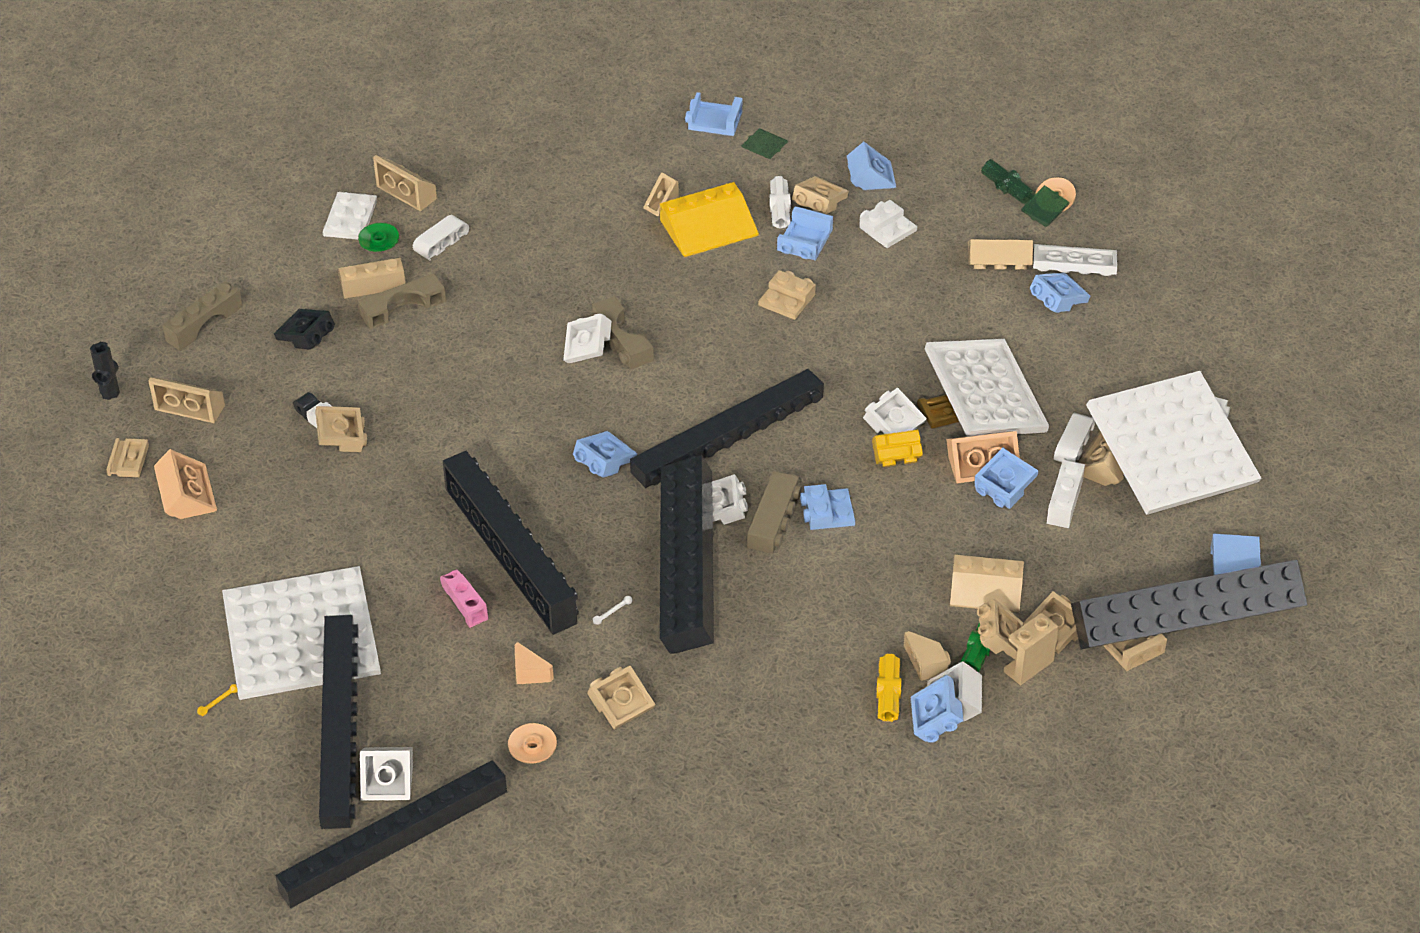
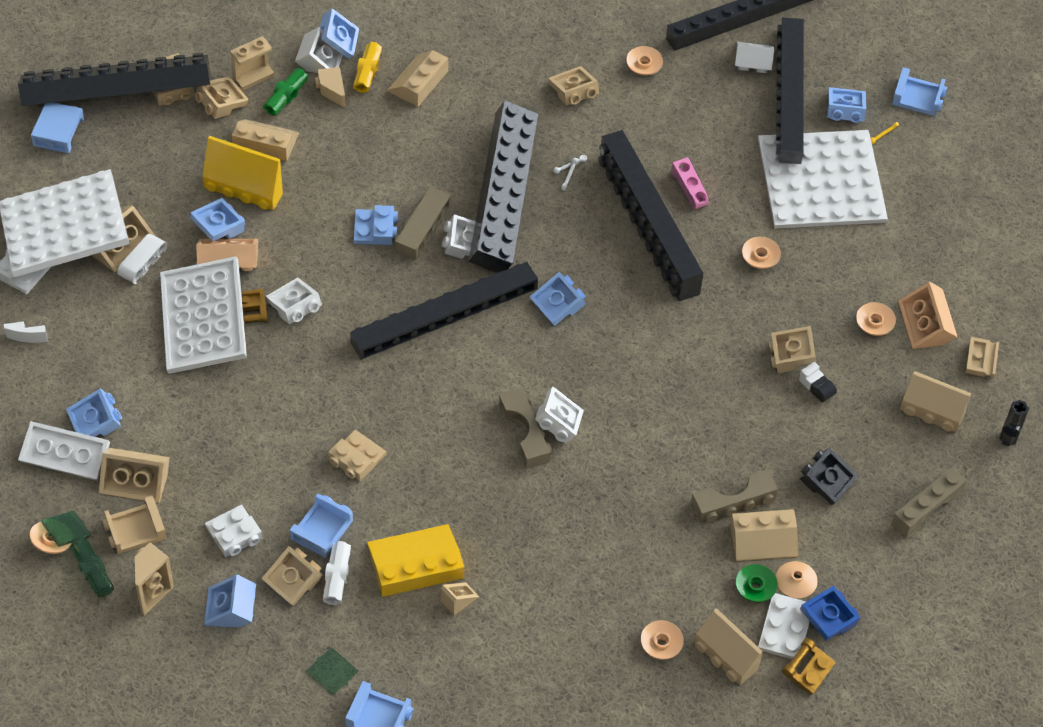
camera: 175 degrees left, 10 degrees up
(166, 752) = (918, 94): none -> light blue panel
(244, 477) = (876, 312): none -> light nougat dish
(264, 719) = (846, 105): none -> light blue plate
(307, 218) = (830, 613): none -> blue plate
(328, 185) = (815, 669): none -> pearl gold plate
(339, 253) = (794, 586): none -> light nougat dish
(375, 530) = (761, 246): none -> light nougat dish
(440, 236) = (691, 575): white beam -> none
(466, 187) = (662, 631): none -> light nougat dish
(531, 667) = (640, 117): light nougat slope -> none
(607, 608) = (575, 161): none -> white hinge
(821, 682) = (420, 77): none -> tan slope
(897, 447) = (300, 265): yellow brick -> none
(946, 157) = (152, 576): none -> tan slope
(983, 216) = (135, 527): none -> tan panel
(993, 518) = (242, 173): none -> yellow slope
(996, 626) = (270, 80): tan plate -> none
(1065, 494) = (171, 203): white brick -> none
(1168, 352) = (18, 332): none -> white slope

